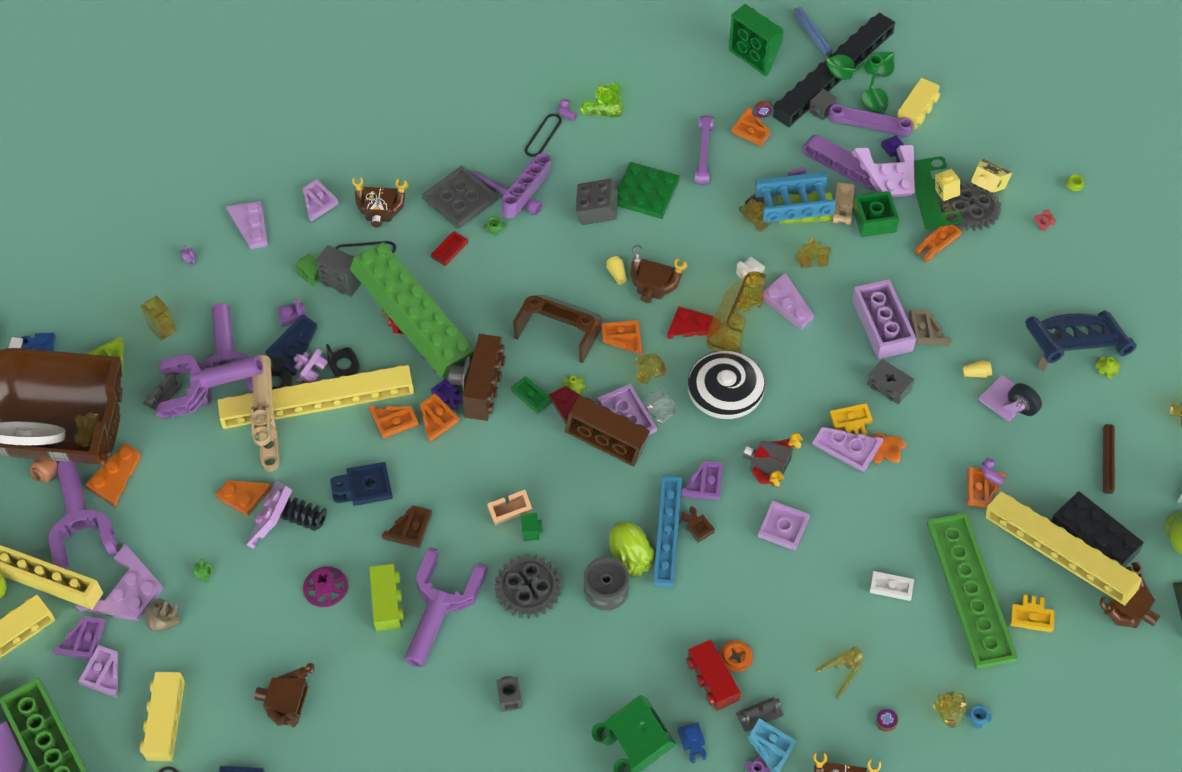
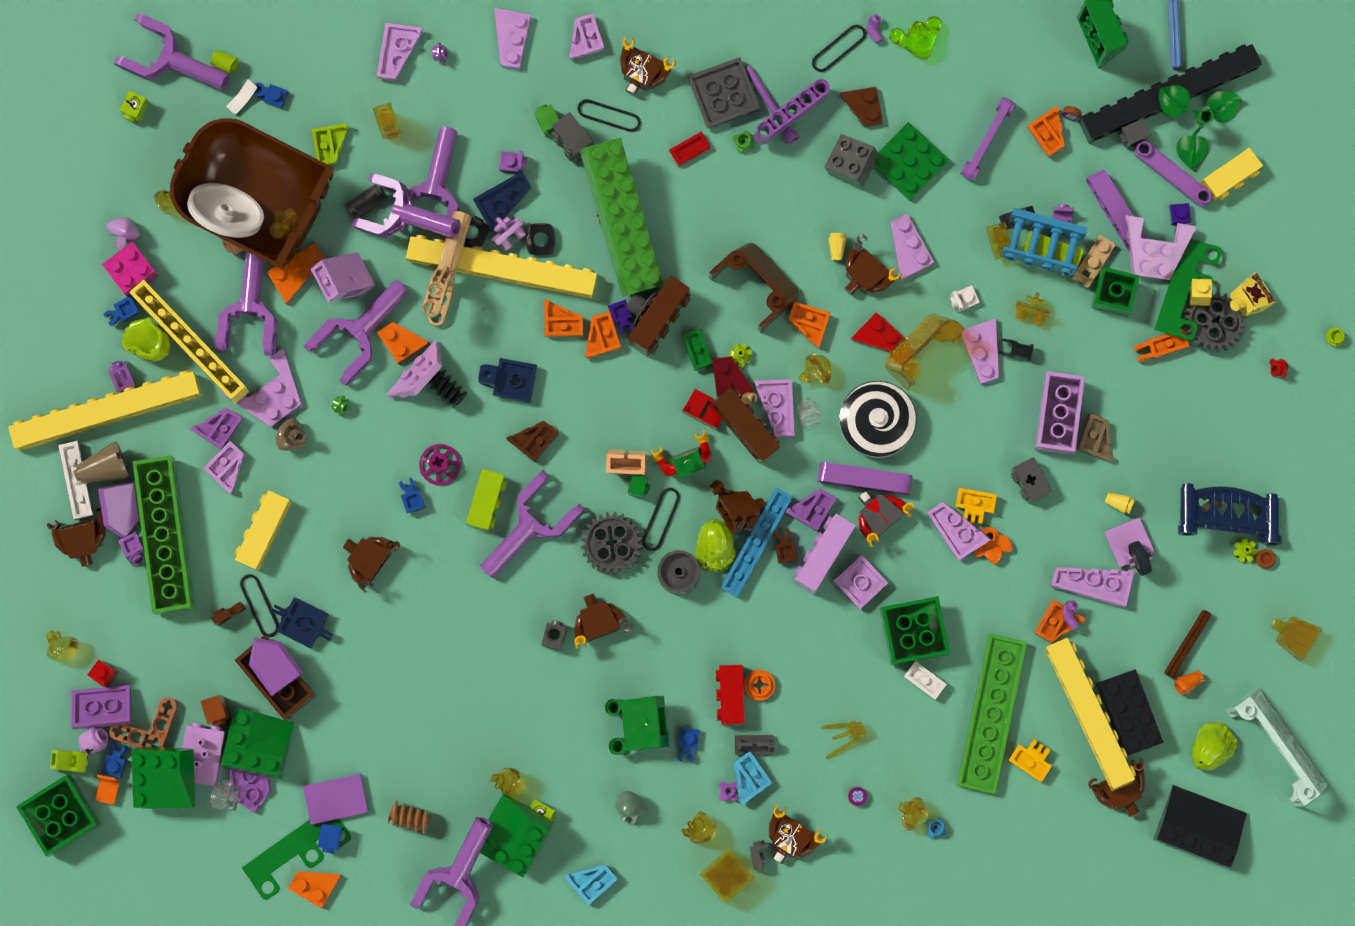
camera: 25 degrees right, 25 degrees up
(146, 266) = (396, 49): none -> lavender wing
(162, 454) = (342, 277): none -> lavender piece
(196, 499) = (360, 328): none -> medium lavender piece
(309, 625) = (412, 499): none -> blue plate
(548, 660) = (598, 621): none -> reddish brown torso
(552, 441) = (695, 407): none -> red piece
(557, 549) = (668, 522): none -> black piece
(564, 487) = (685, 462): none -> torso
(587, 165) = (865, 105): none -> reddish brown wing
(635, 505) = (737, 508): none -> reddish brown torso
(680, 247) = (910, 250): none -> lavender wing
(736, 511) = (824, 554): none -> lavender brick
(738, 438) = (864, 478): none -> medium lavender beam
(819, 288) = (1018, 349): none -> black piece
(858, 544) = (914, 631): none -> green slope
(1000, 442) = (1101, 585): none -> lavender wing
(1129, 366) = (1265, 558): none -> dark orange tile
(1129, 490) = (1186, 683): none -> orange cone

